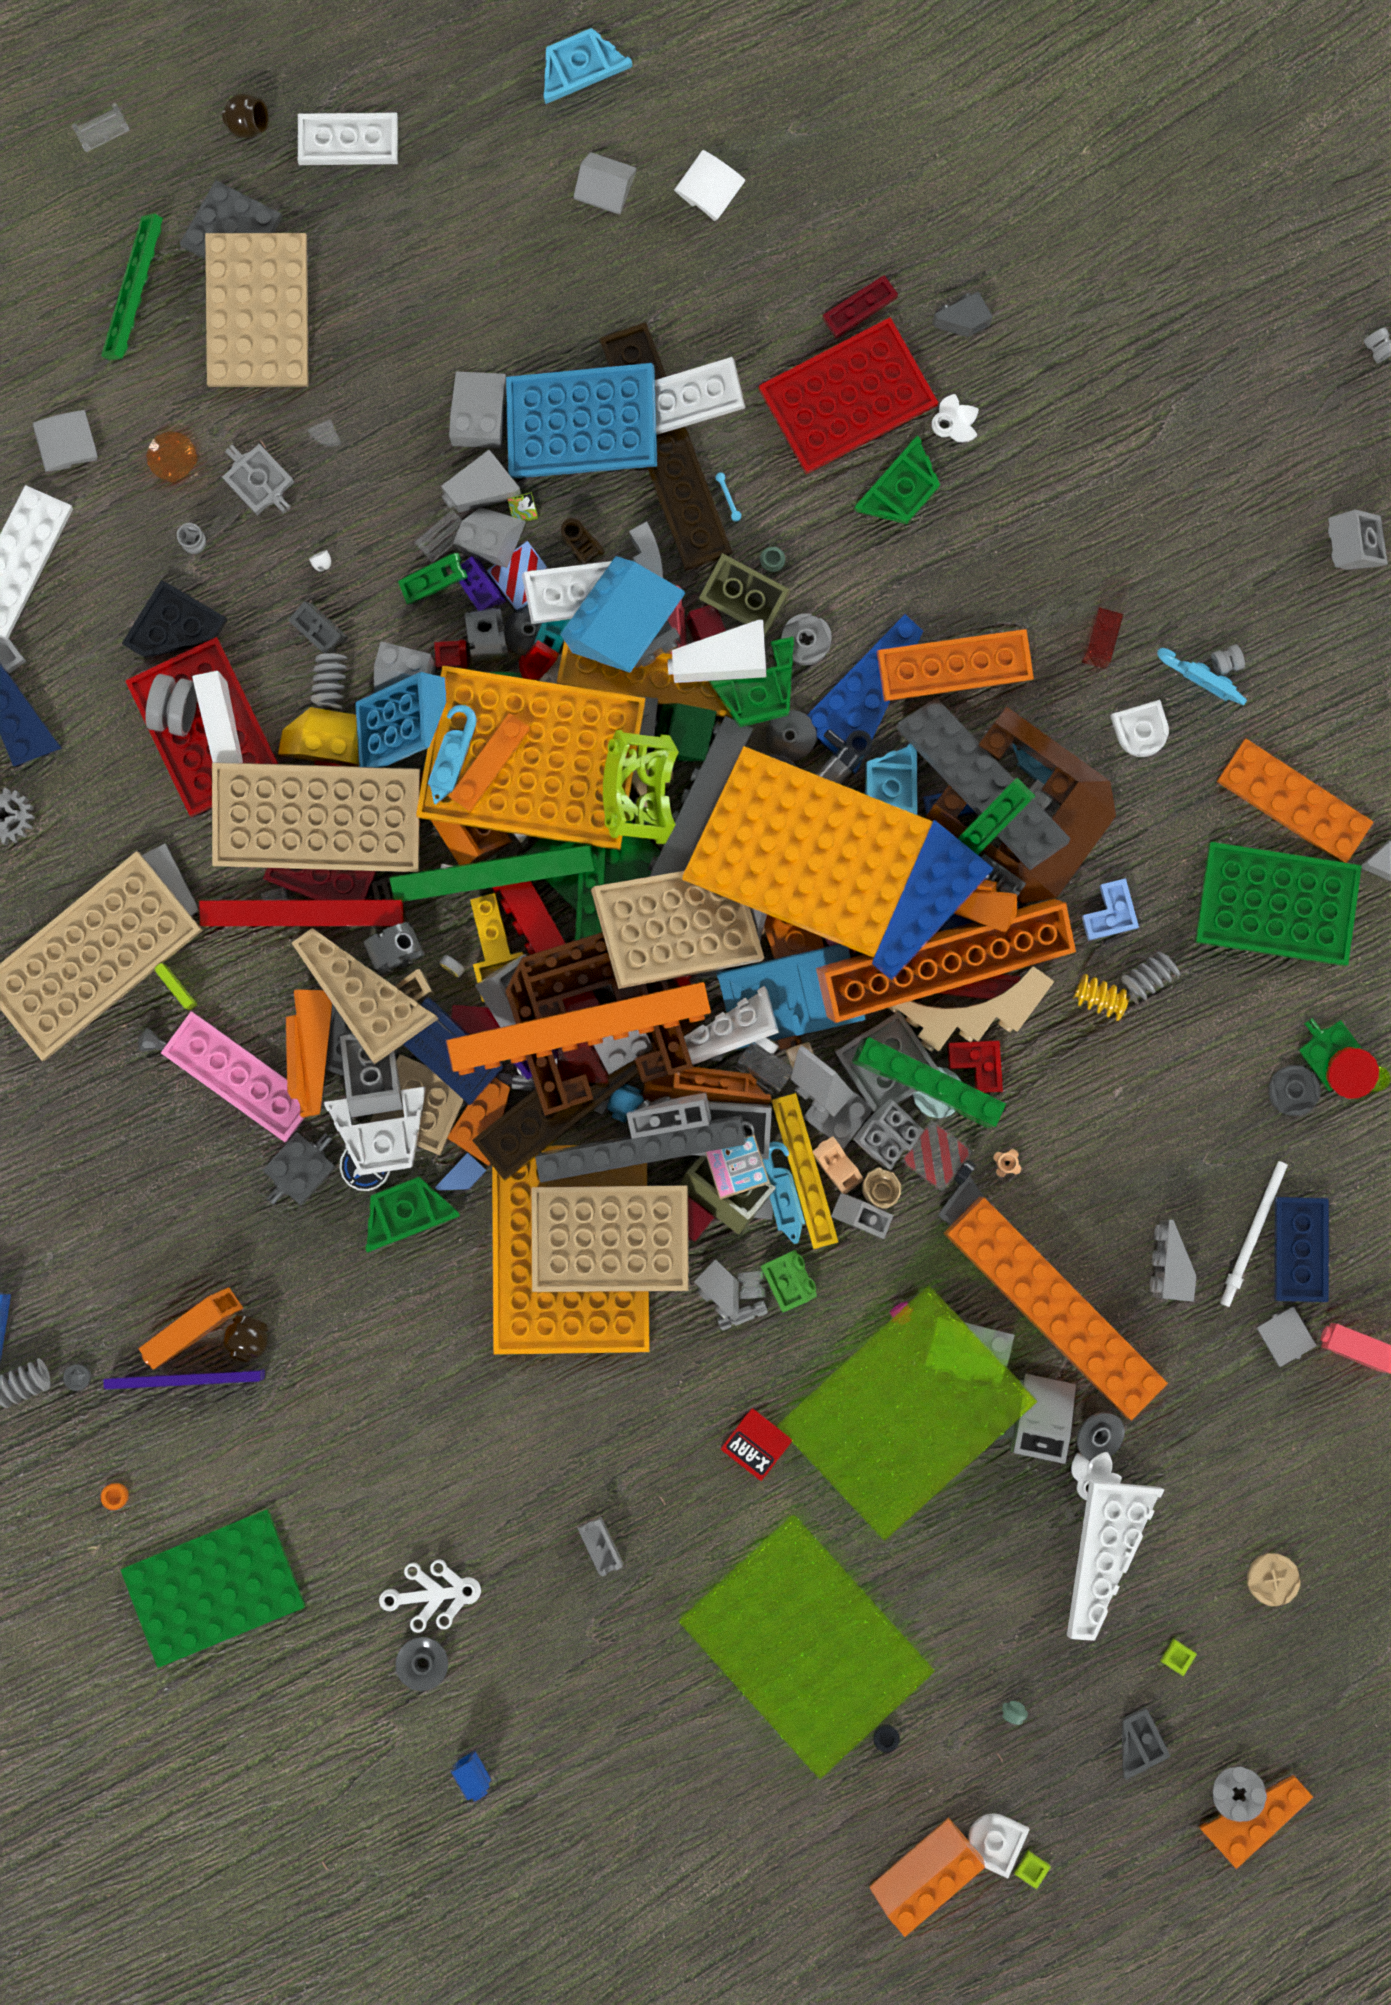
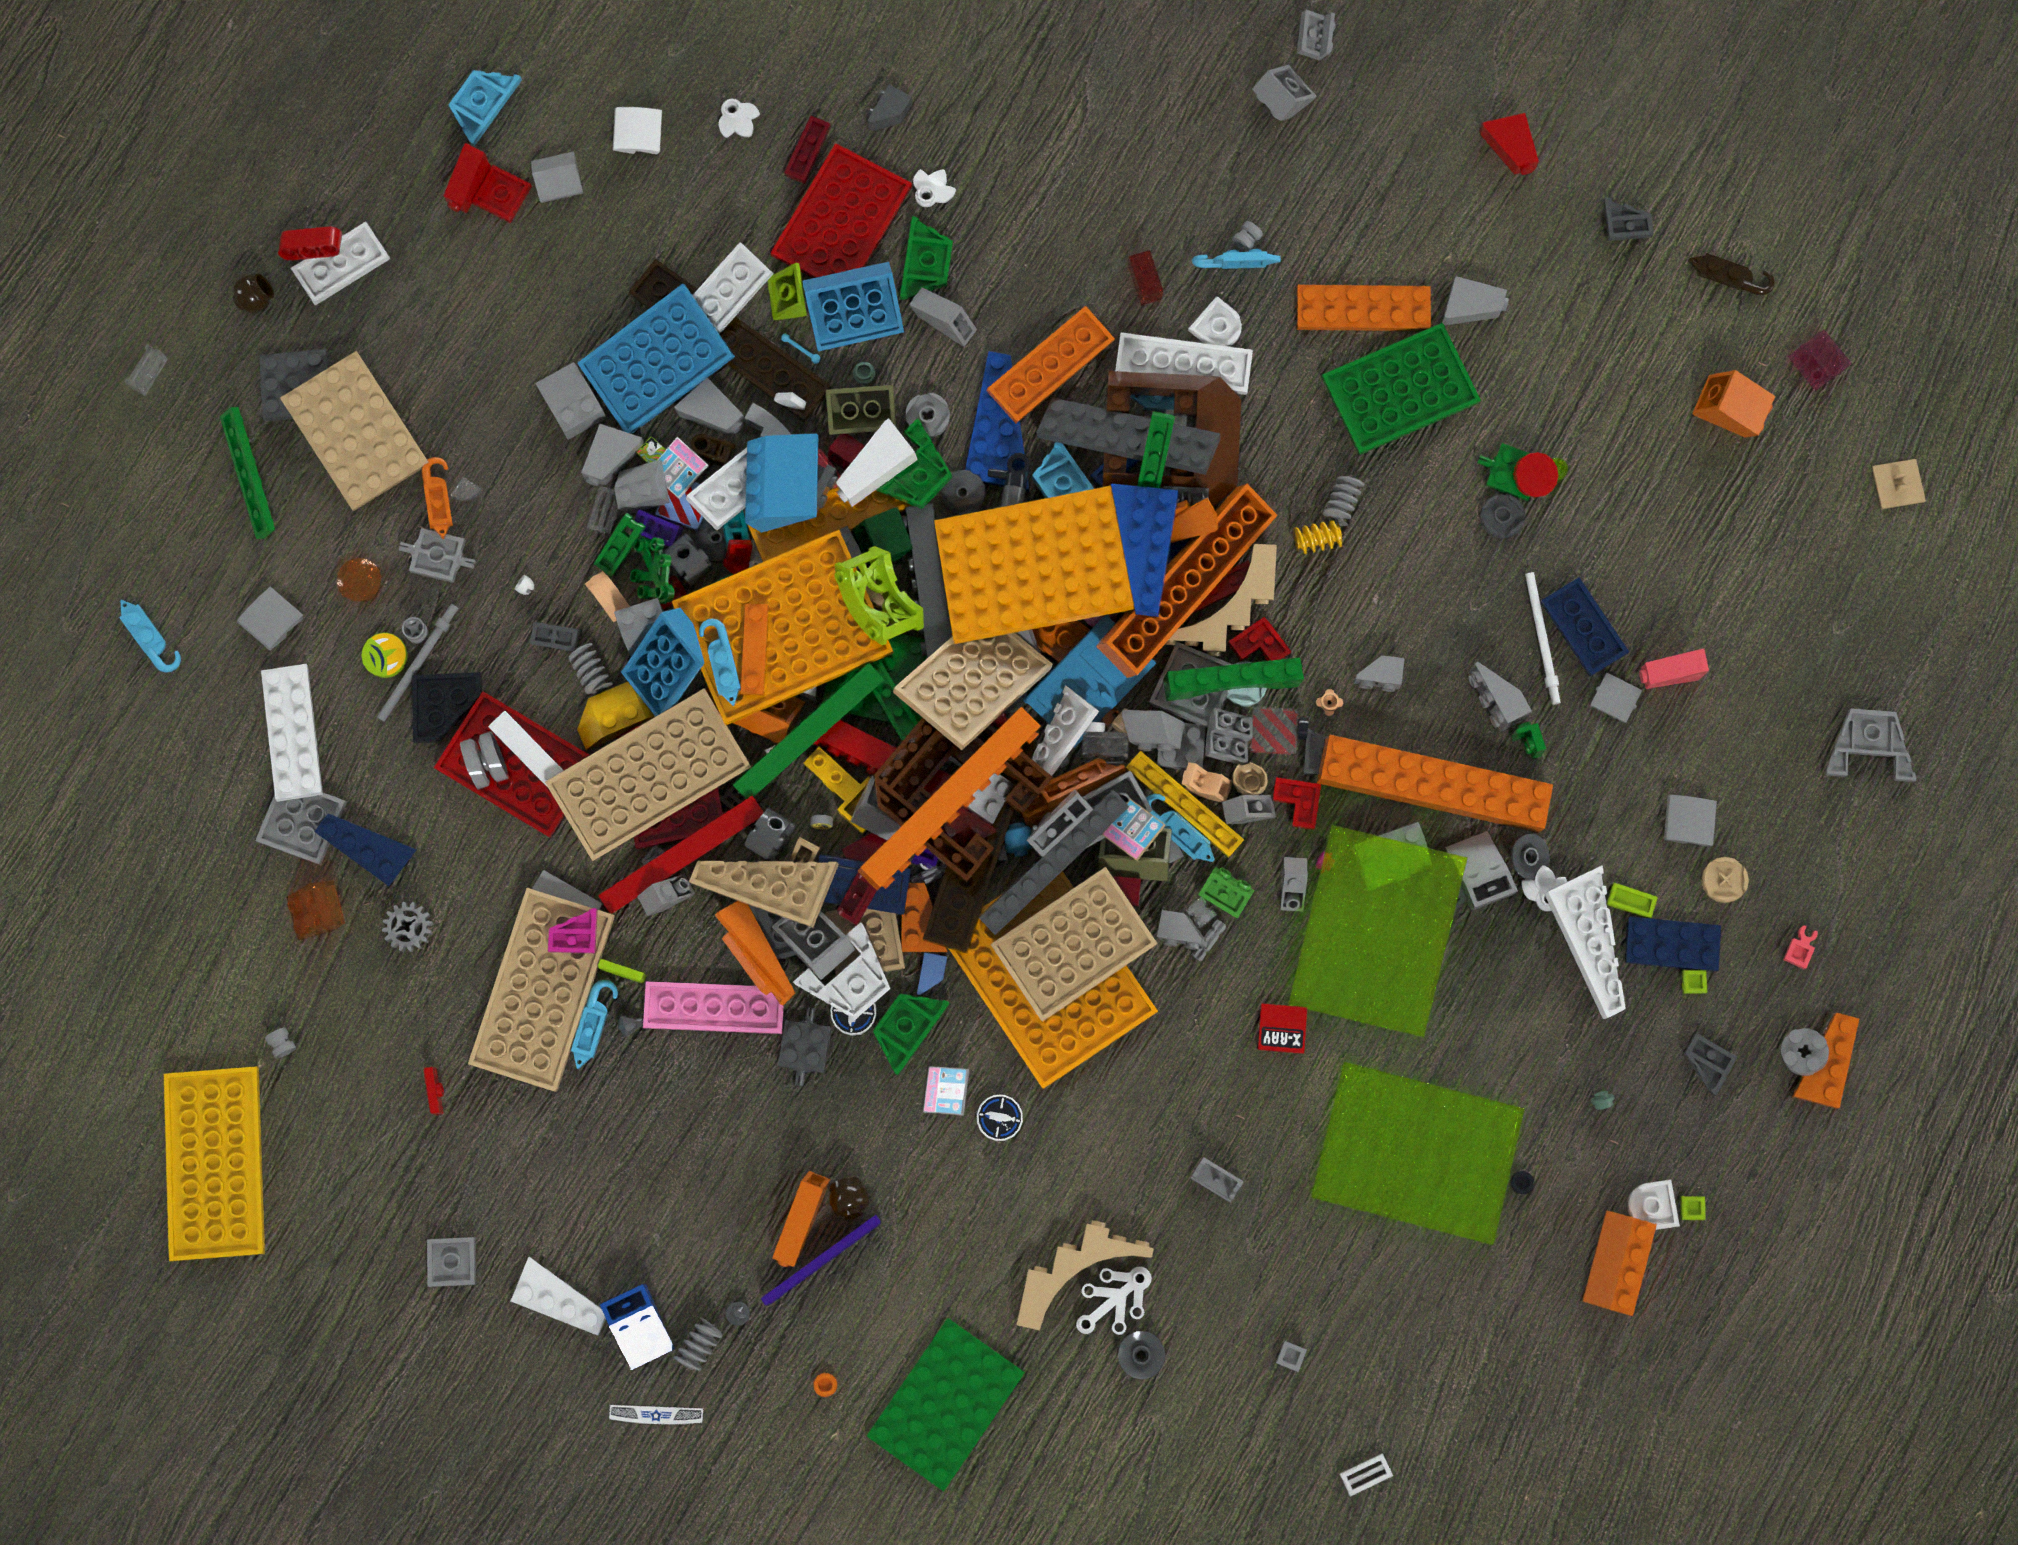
camera: 30 degrees left, 5 degrees down
(115, 1018) = (591, 1024): none -> medium azure plate
(149, 543) = (384, 655): none -> tile
(151, 926) = (575, 934): none -> dark pink wing
(220, 549) = (442, 625): none -> light grey bar
(262, 940) = (665, 894): none -> light grey slope
(292, 424) = (437, 498): none -> orange plate
(329, 101) = (310, 243): none -> red beam
(391, 619) = (606, 594): none -> light nougat brick
(402, 1296) = (946, 1090): none -> piece
(430, 1065) = (856, 899): none -> dark red hinge
(436, 1354) = (999, 1117): none -> tile
(442, 650) = (663, 590): none -> green plant
(445, 1536) = (1096, 1247): none -> tan arch
(471, 1776) = (1235, 1412): blue brick -> none
(517, 131) = (466, 178): none -> red slope
(539, 540) = (681, 467): none -> piece
(542, 166) = (501, 193): none -> red tile
(558, 1912) = (1348, 1483): none -> white tile
(560, 1757) = (1291, 1356): none -> light grey plate
(604, 502) = (711, 409): none -> light grey slope
(683, 541) = (790, 400): none -> white tile
(749, 436) = (787, 293): none -> lime slope
(802, 487) = (853, 306): none -> dark azure slope
(813, 237) = (740, 120): none -> white plate
(857, 1314) = (1293, 884): none -> light grey slope
(883, 552) = (943, 316): none -> light grey slope
(922, 1236) = (1303, 795): none -> red plate
(1078, 1168) = (1383, 673): none -> light grey slope
(1086, 739) = (1173, 356): none -> white plate
(1118, 914) = (1289, 468): light blue plate -> none
(1170, 1541) = (1631, 900): none -> lime tile
(1177, 1329) = (1534, 741): none -> green bracket
(1182, 1608) = (1672, 944): none -> dark blue plate
(1278, 1501) = (1690, 820): none -> light grey slope
(1299, 1695) = (1799, 951): none -> coral plate

